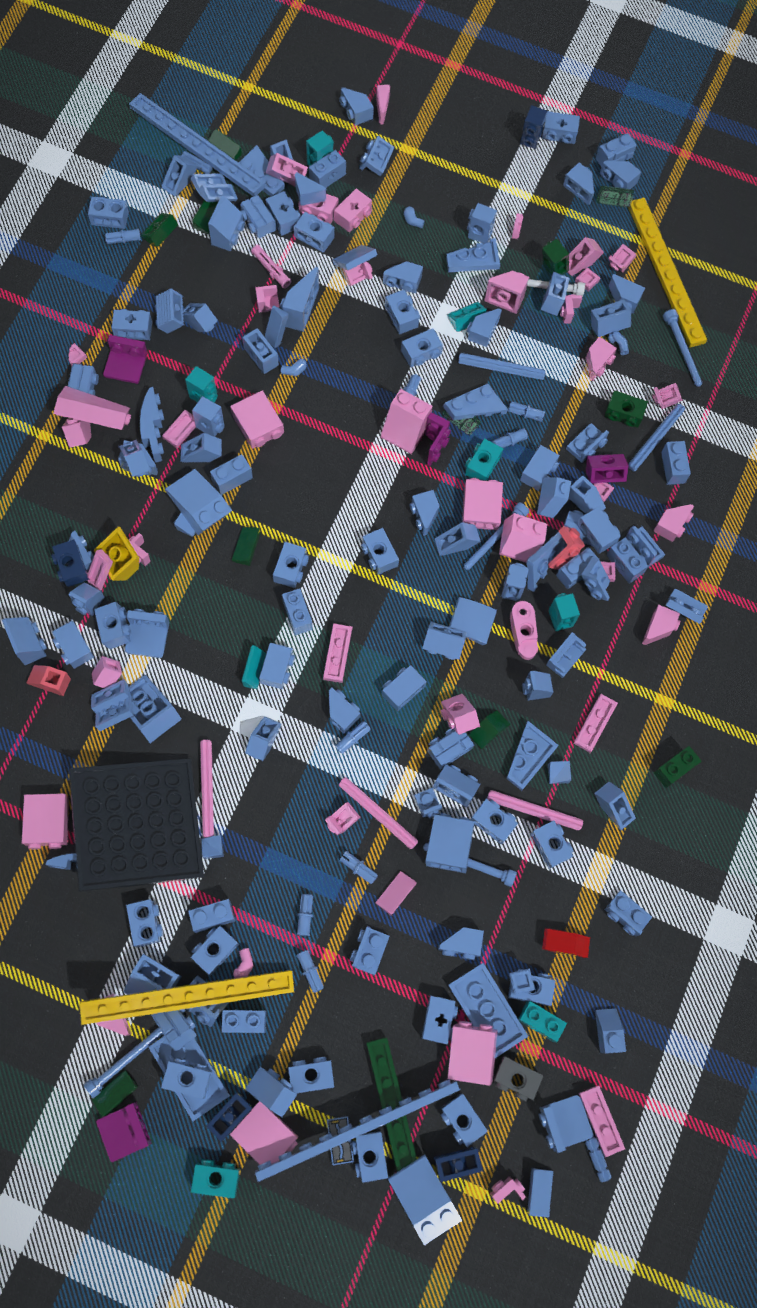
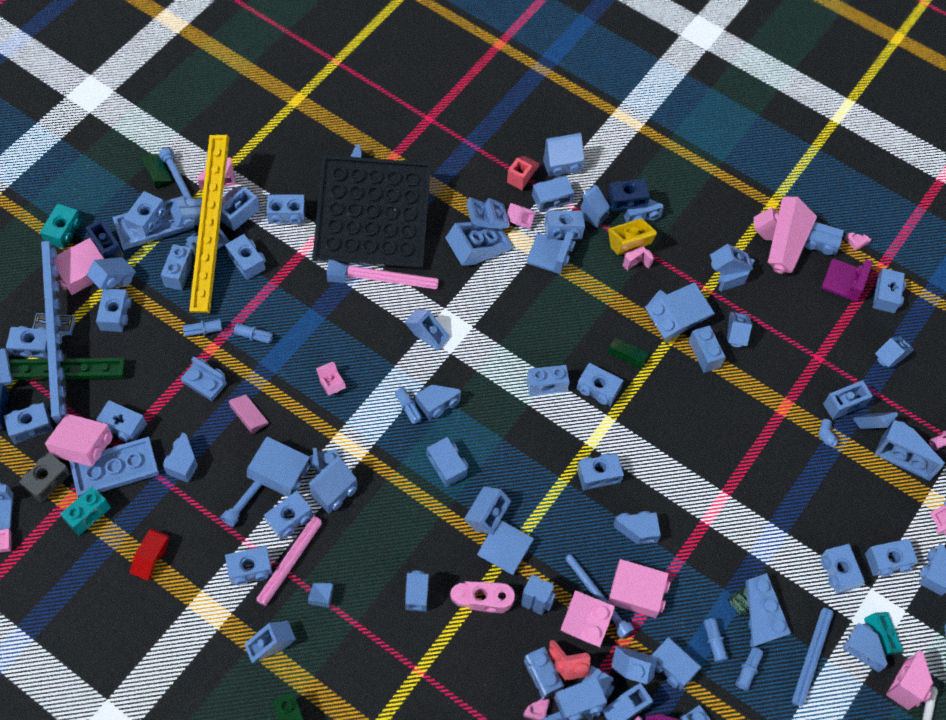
camera: 105 degrees right, 10 degrees down
(45, 820) = (396, 146): bright pink brick -> none
(99, 569) = (620, 220): bright pink tile -> none
(124, 1132) = (124, 172): magenta bracket -> none
(150, 423) = (778, 289): medium blue slope -> none
(169, 311) = (902, 324): medium blue brick -> none
(180, 429) = (766, 317): bright pink tile -> none
(201, 384) = (807, 335): teal brick -> none
(208, 417) = (772, 336): medium blue brick -> none
(211, 916) = (275, 259): medium blue brick -> none
(246, 964) = (225, 280): bright pink arm -> none
(253, 668) = (499, 334): teal slope -> none
(257, 419) = (767, 385): bright pink brick -> none
(267, 297) = (916, 418): bright pink panel -> none
(276, 666) = (495, 353): medium blue brick -> none
(337, 653) = (498, 410): bright pink plate -> none
(359, 867) = (282, 385): medium blue axle -> none
(378, 813) = (328, 414): bright pink axle -> none
(406, 421) = (746, 526): bright pink slope -> none
(413, 385) = (788, 545): medium blue axle -> none
(438, 431) = (720, 558): magenta bracket -> none
(449, 748) = (374, 491): medium blue brick -> none
(457, 539) = (601, 553): medium blue slope -> none
(459, 714) = (404, 503): bright pink brick -> none
(488, 452) = (693, 614): teal brick -> none
(489, 729) = (385, 537): dark green slope -> none
(521, 981) = (125, 496): medium blue tile -> none
(530, 755) = (345, 569): medium blue wing -> none
(539, 561) = (556, 628): medium blue wing -> none
(543, 993) = (119, 499): medium blue brick -> none
(563, 611) = (493, 638): teal brick -> none
(566, 655) = (445, 635): medium blue hinge -> none
(595, 723) = (365, 648): bright pink tile -> none
(596, 579) = (524, 686): medium blue bracket -> none
(610, 1031) = (52, 573): medium blue slope -> none
(628, 914) = (157, 624): medium blue bracket -> none

